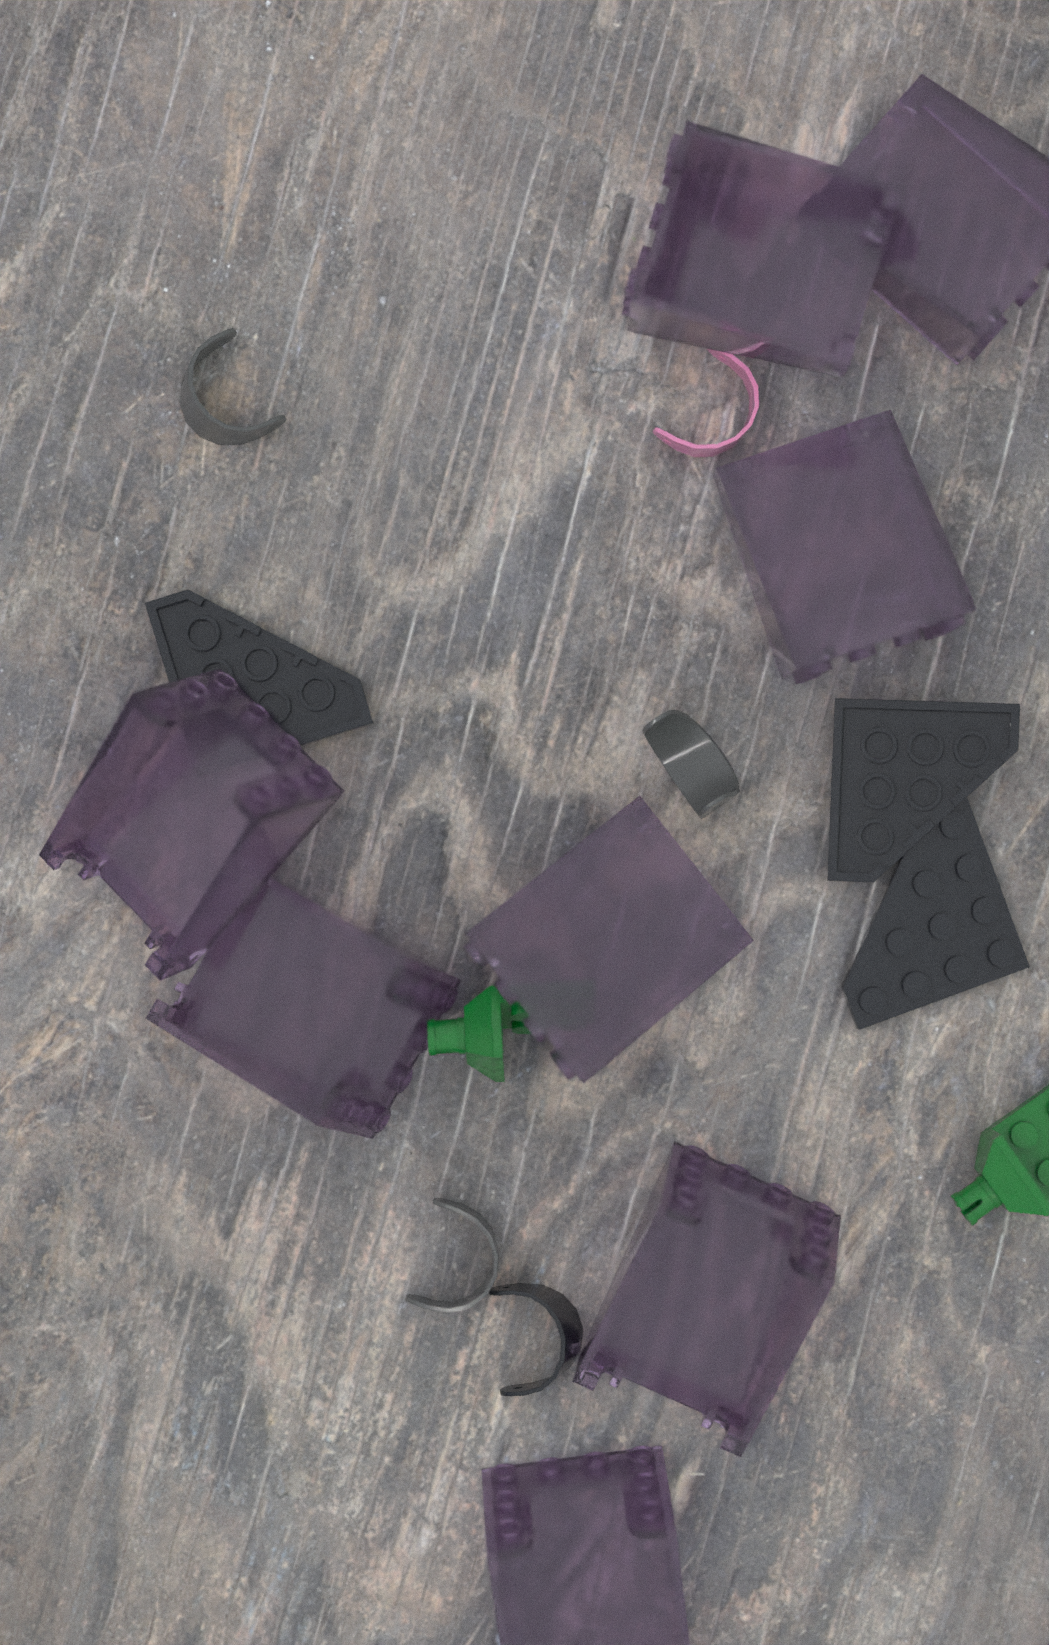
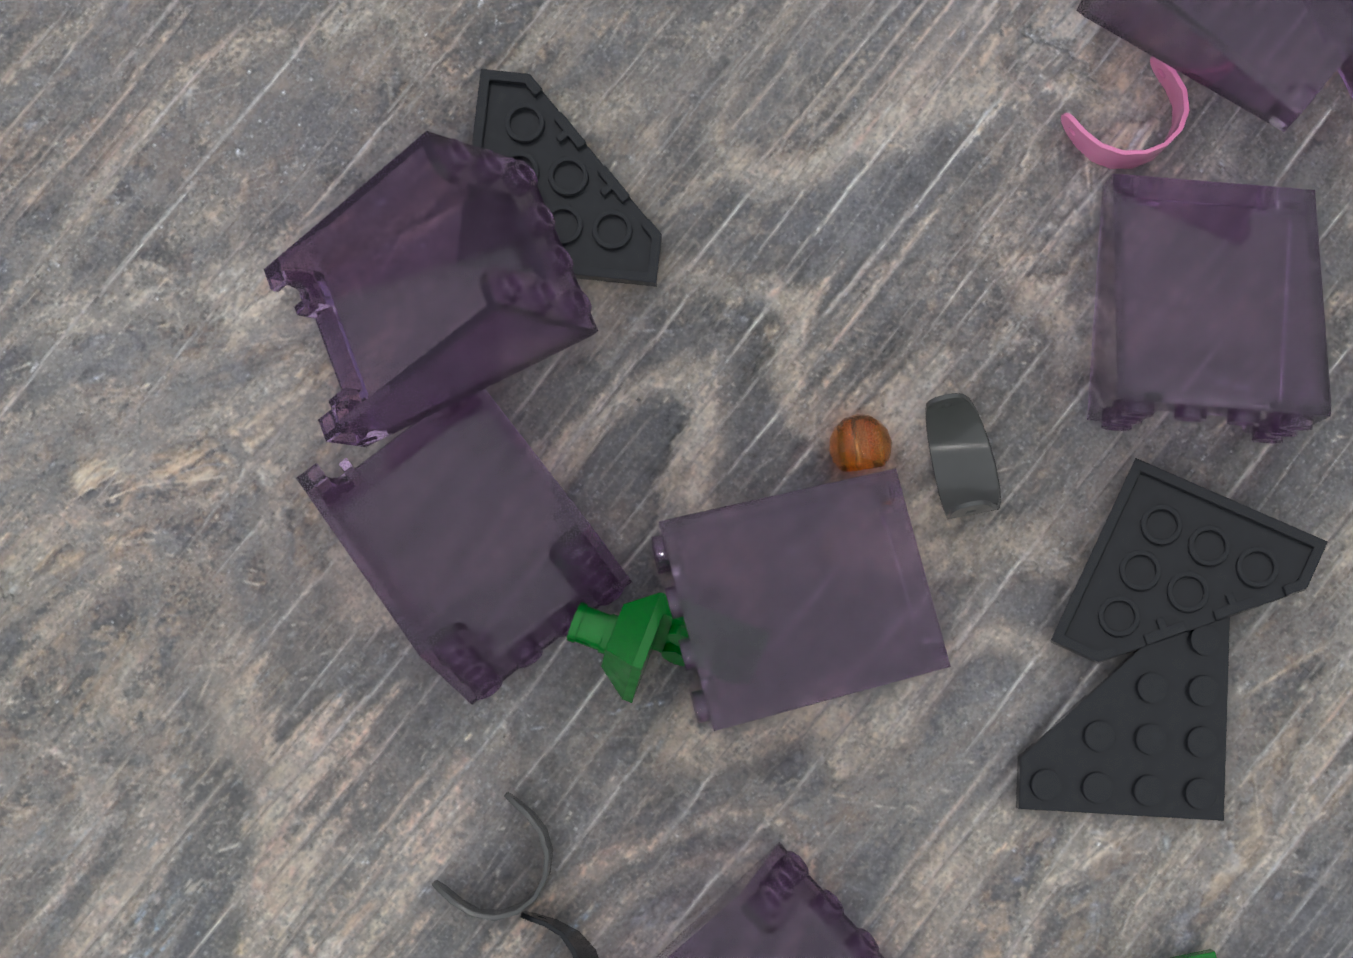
camera: 30 degrees right, 5 degrees down
(601, 785) = (860, 443): none -> clear orange piece

